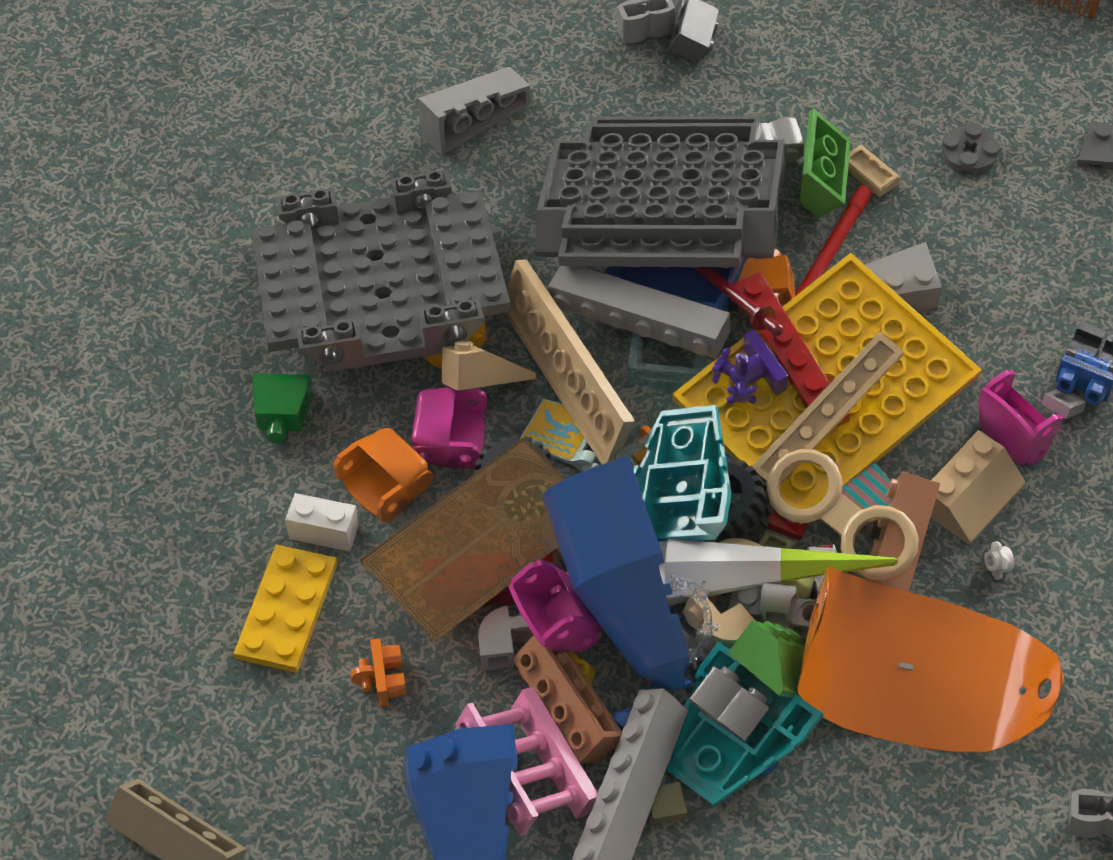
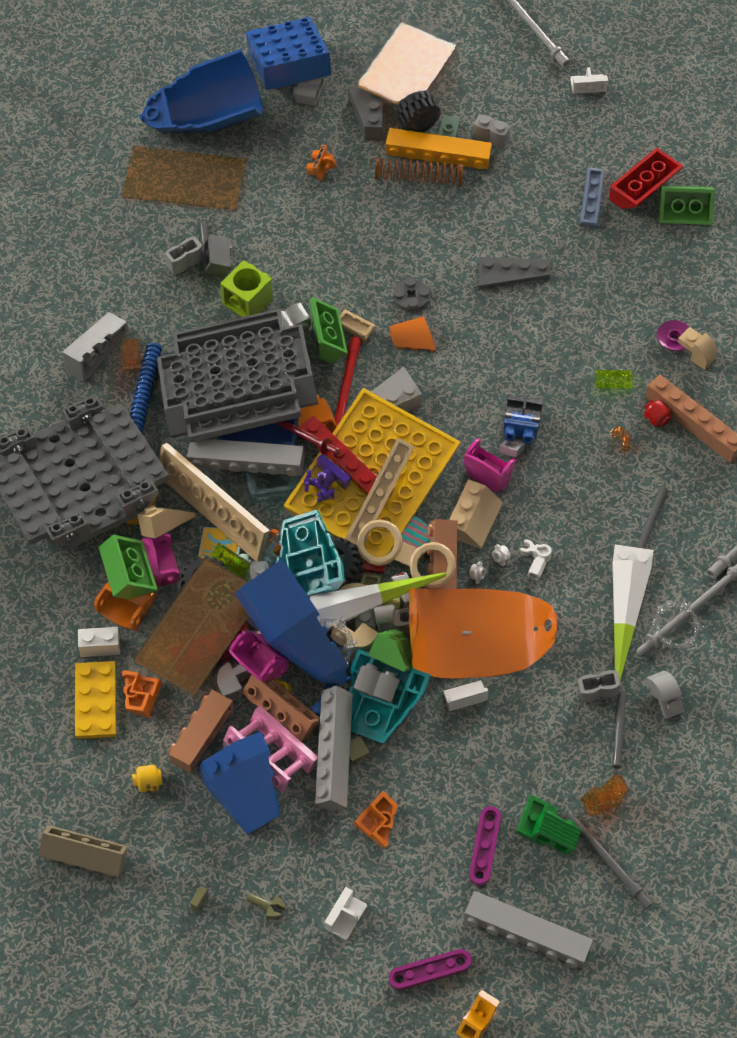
camera: 20 degrees left, 5 degrees up
(281, 403) = (44, 574): green torso -> none
(318, 751) = (147, 778): none -> yellow head
(357, 617) = (140, 692): none -> orange slope
(387, 685) = (165, 714): orange hips -> none
(400, 421) = (127, 567): none -> bright green slope
(427, 700) = (201, 731): none -> nougat brick
(522, 130) = (131, 353): none -> clear orange brick
(525, 181) = (145, 384): none -> blue piece
(566, 456) = (233, 561): none -> clear neon green tile
(721, 81) = (246, 302): none -> lime brick
(875, 767) = (465, 695): none -> white panel
(952, 577) = (477, 572): none -> white plate
(954, 204) = (412, 335): none -> orange slope
(1066, 579) = (542, 555): none -> white bar

